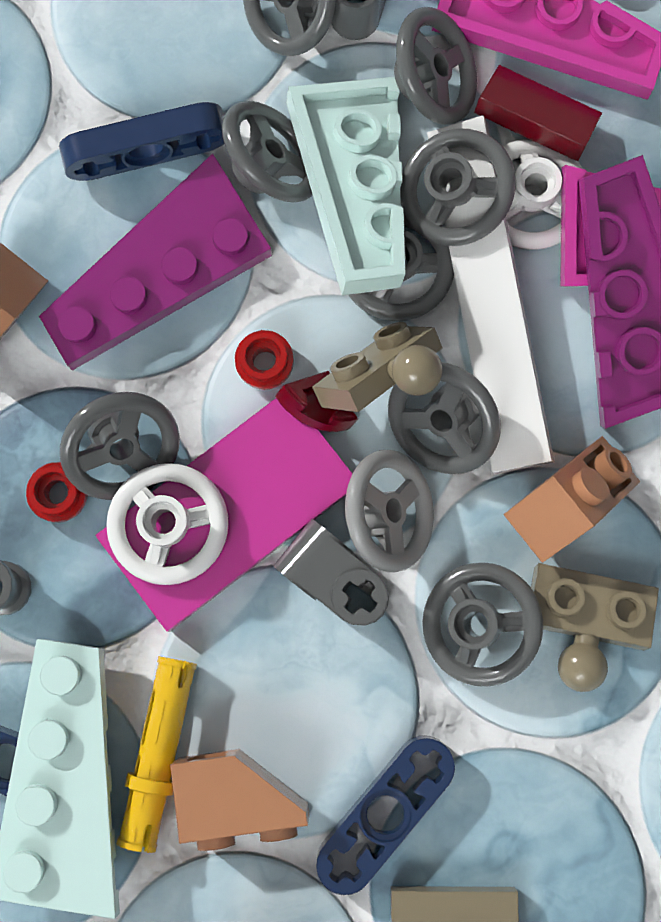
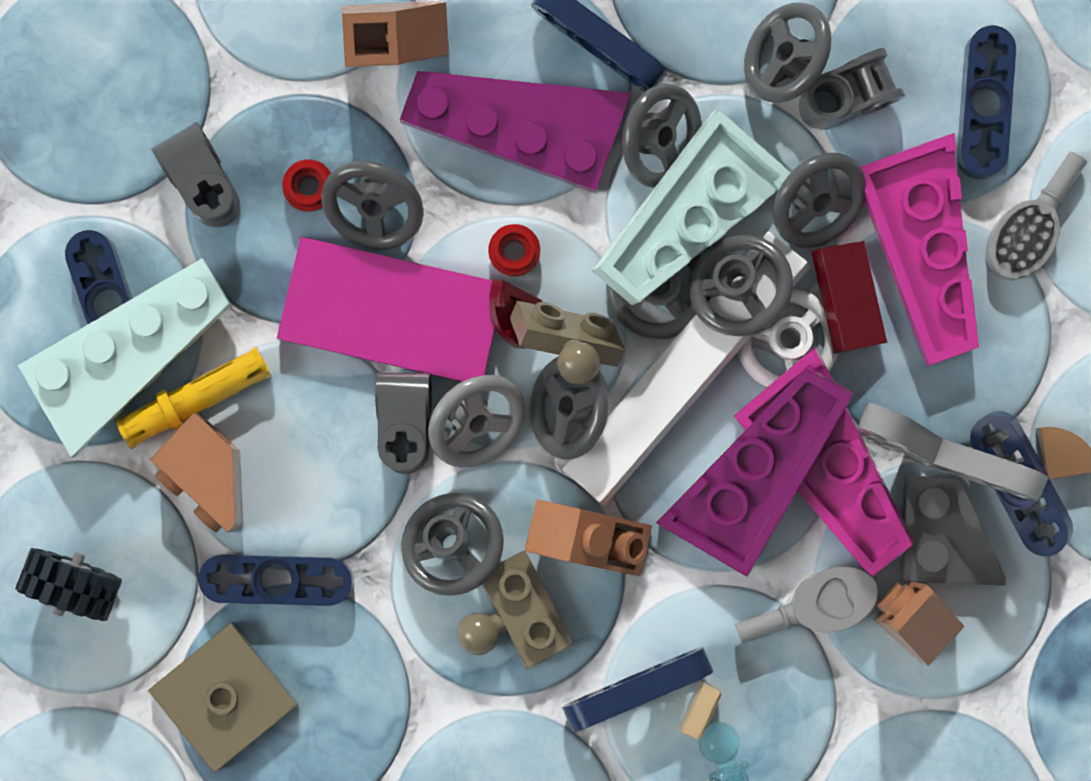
camera: 45 degrees right, 5 degrees up
(151, 507) = (310, 294): white piece -> none

